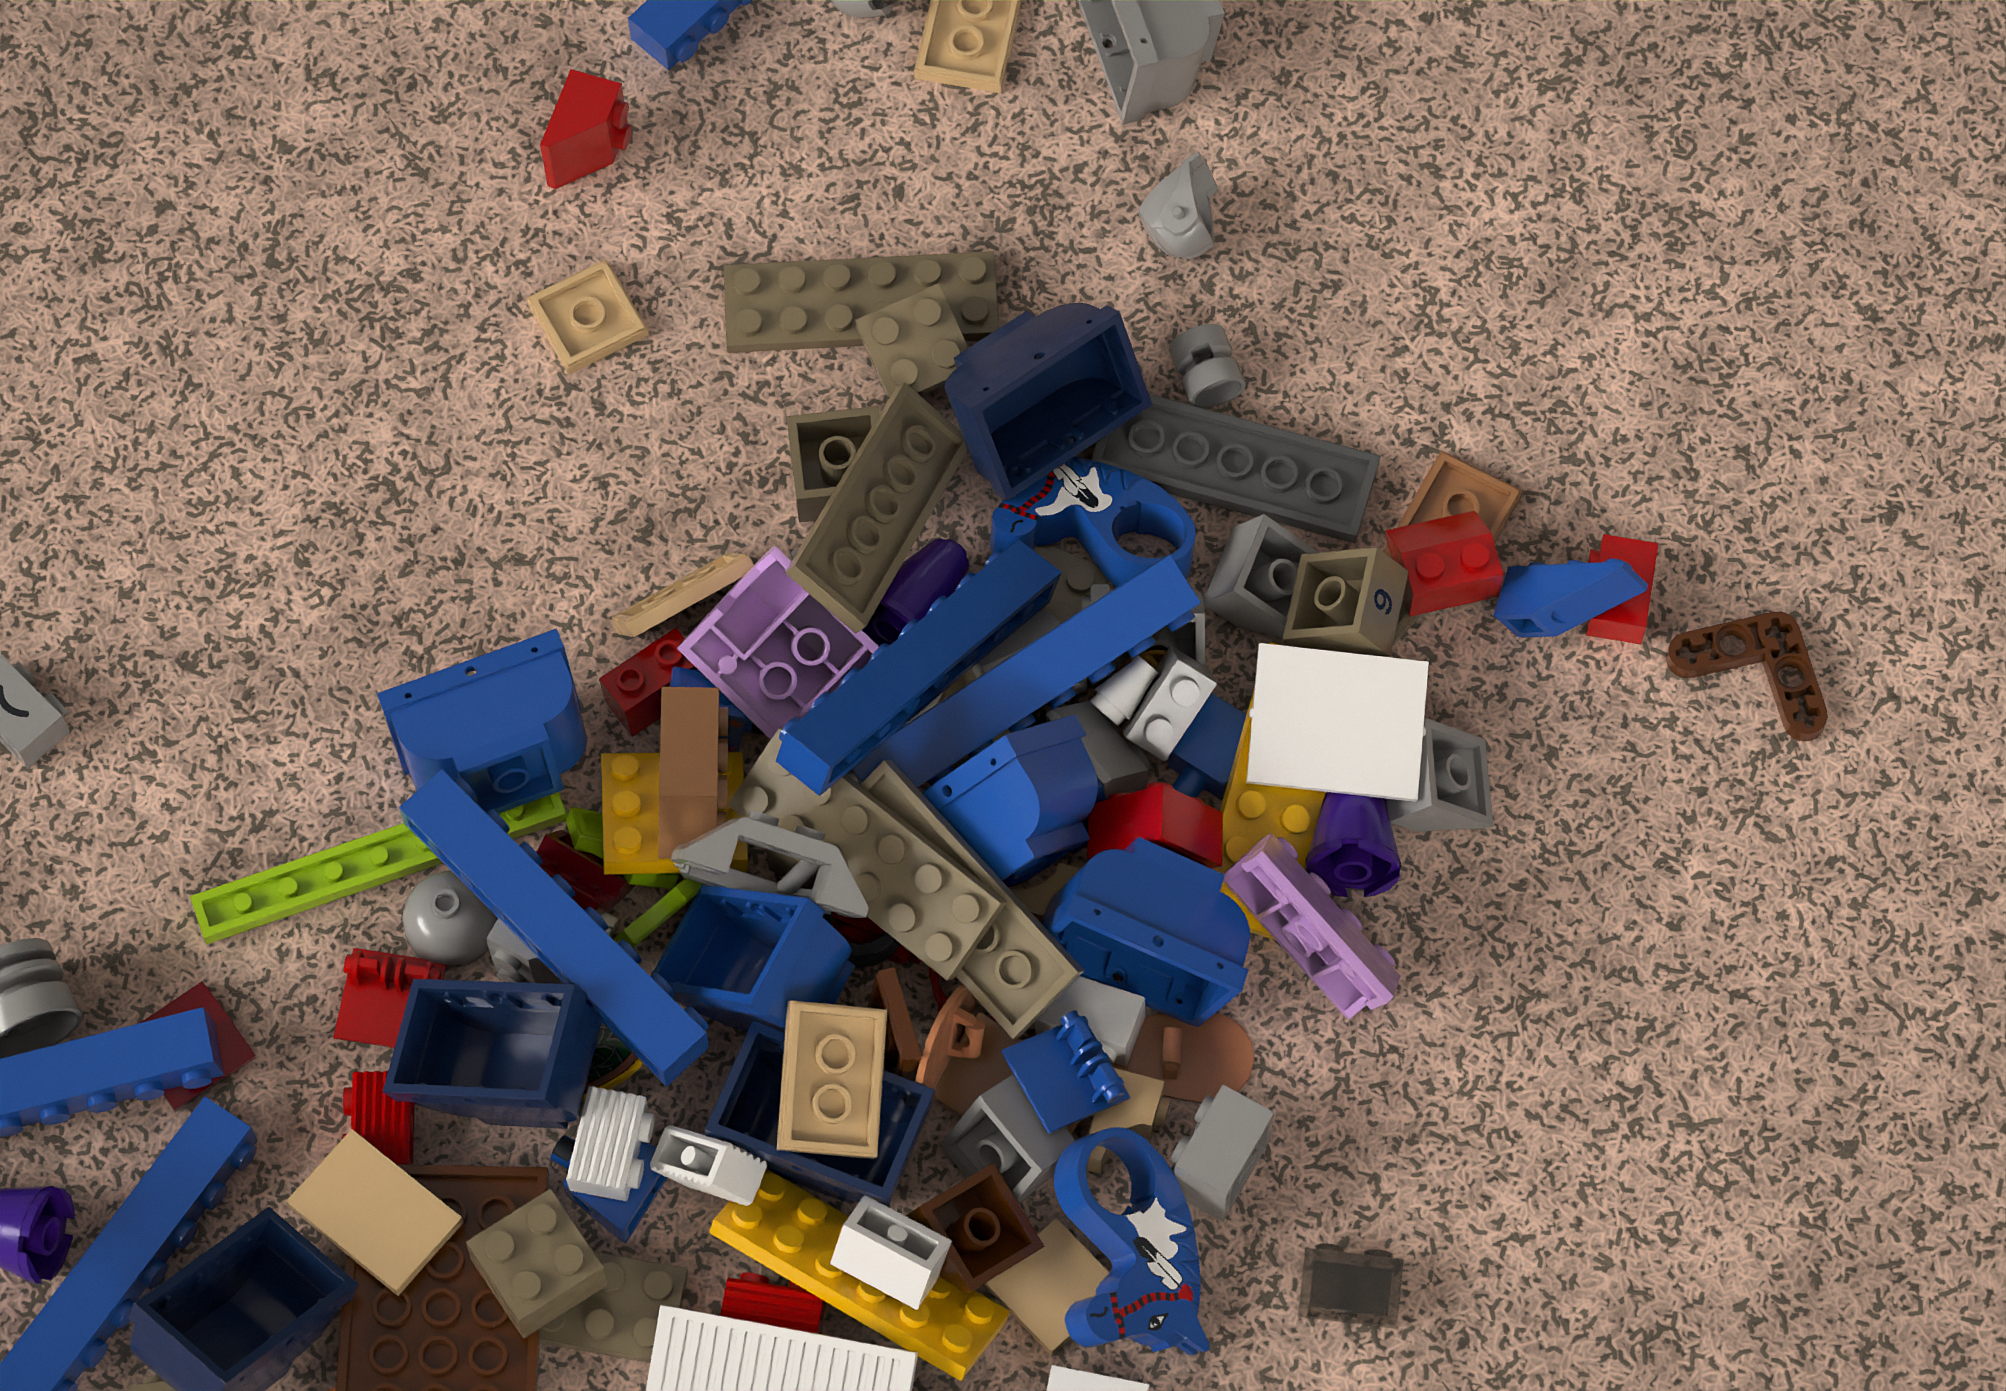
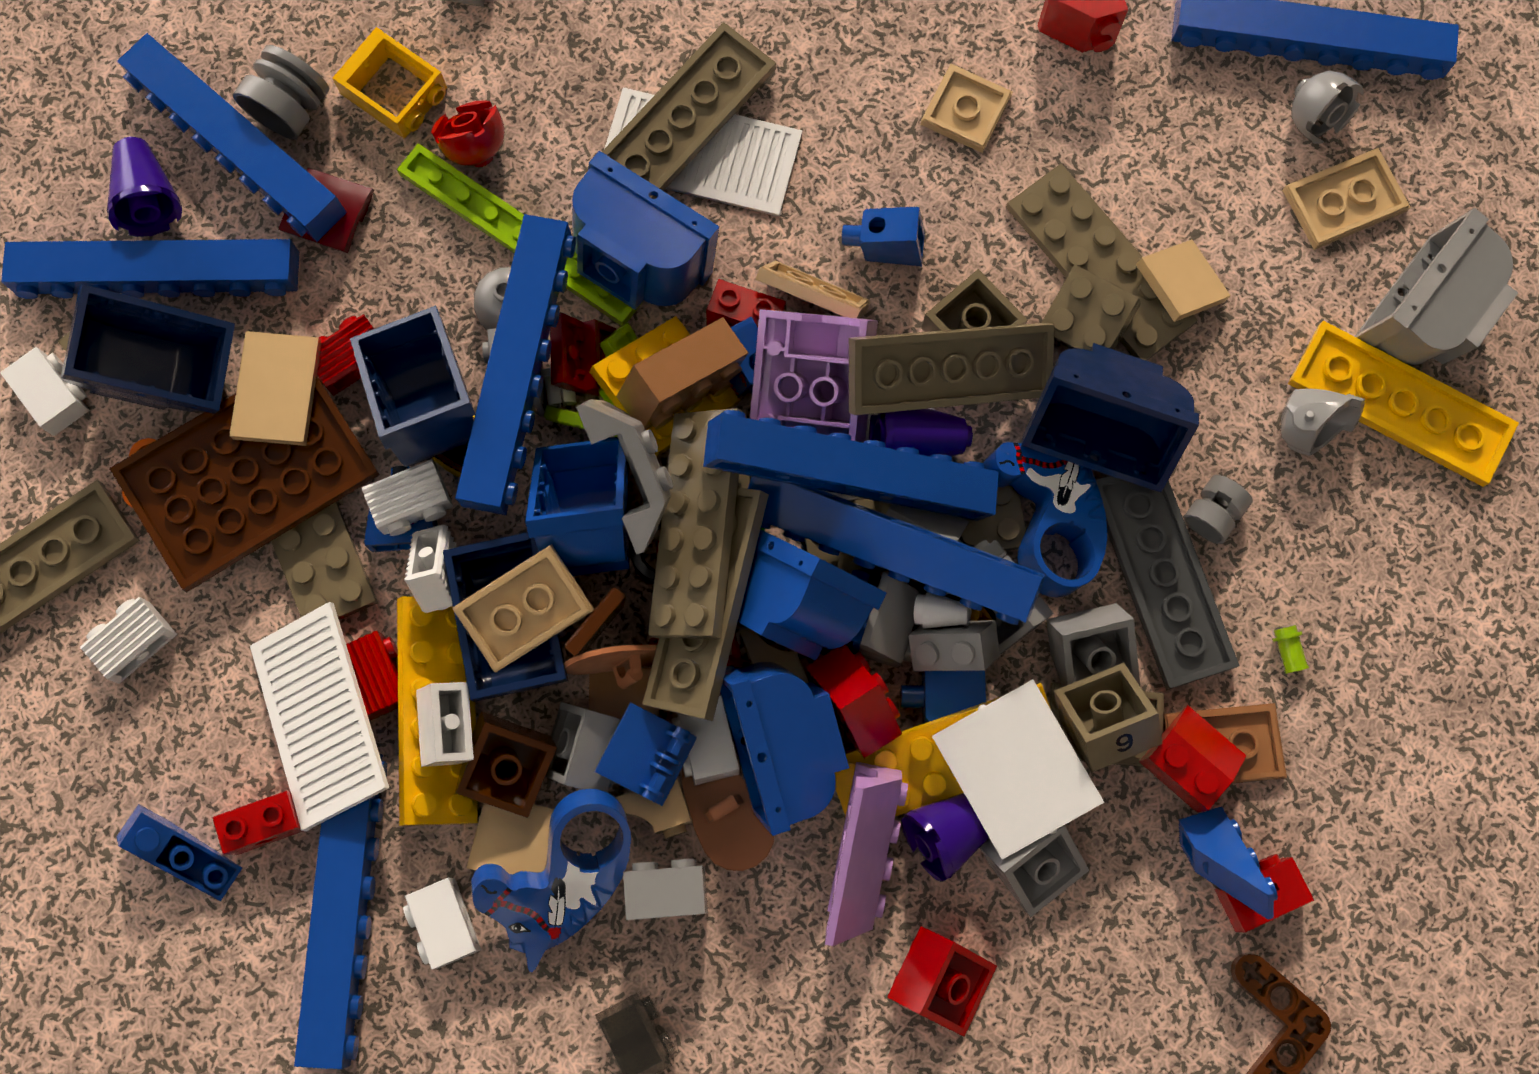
camera: 55 degrees right, 10 degrees up
(80, 846) = (366, 63): none -> yellow window
(225, 829) = (471, 135): none -> red cylinder
(372, 589) = (691, 107): none -> dark tan plate
(378, 994) = (440, 287): red hinge -> none
(425, 611) = (740, 166): none -> white window
(536, 1263) = (298, 507): dark tan brick -> none
(677, 482) = (888, 235): none -> blue torso
(942, 235) = (1183, 280): none -> tan tile
(1226, 119) = (1407, 404): none -> yellow plate
(1397, 398) = (1291, 649): none -> lime pin
(1497, 948) = (942, 981): none -> red slope

